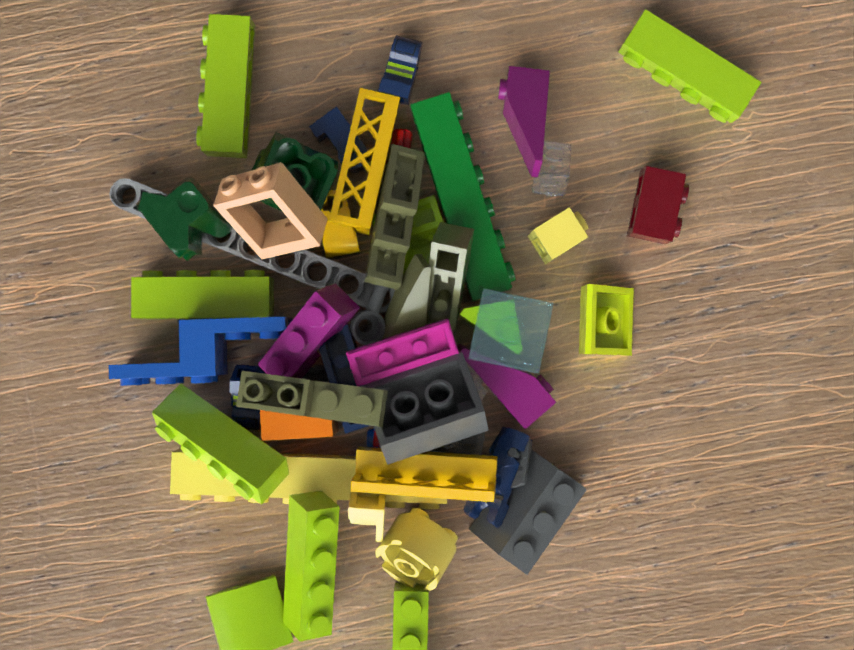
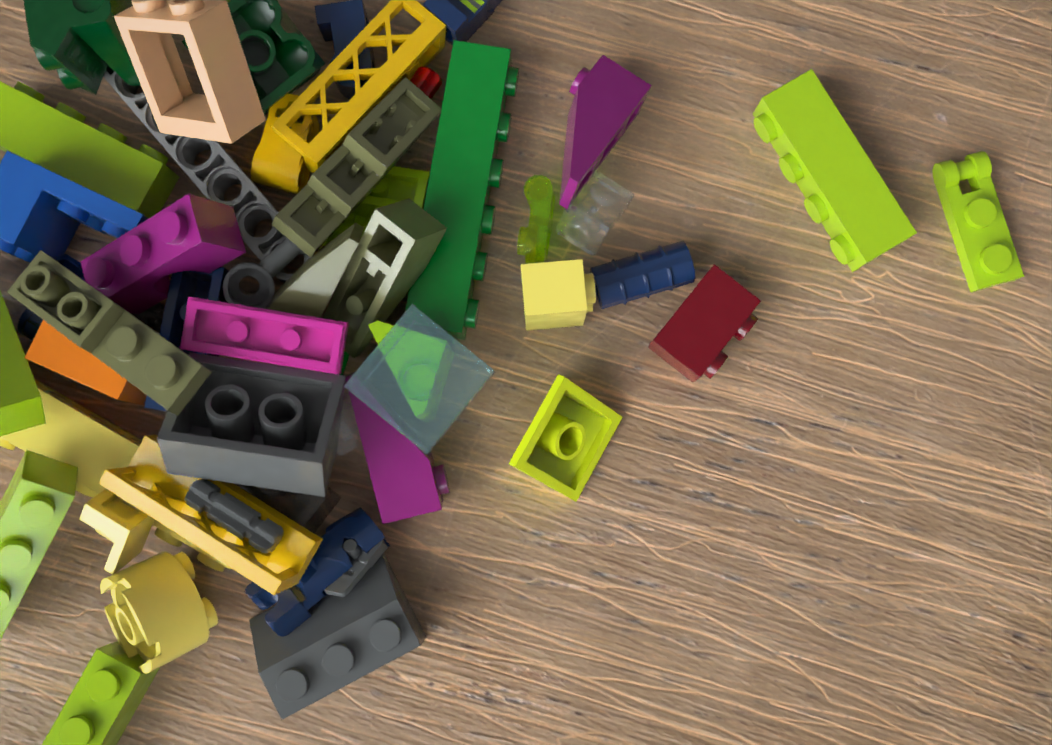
camera: 30 degrees right, 5 degrees down
(440, 469) = (234, 515): none -> dark grey axle
(524, 204) = (535, 239): none -> clear neon green plate
(604, 191) = (643, 274): none -> dark blue axle
(794, 52) = (977, 222): none -> lime plate

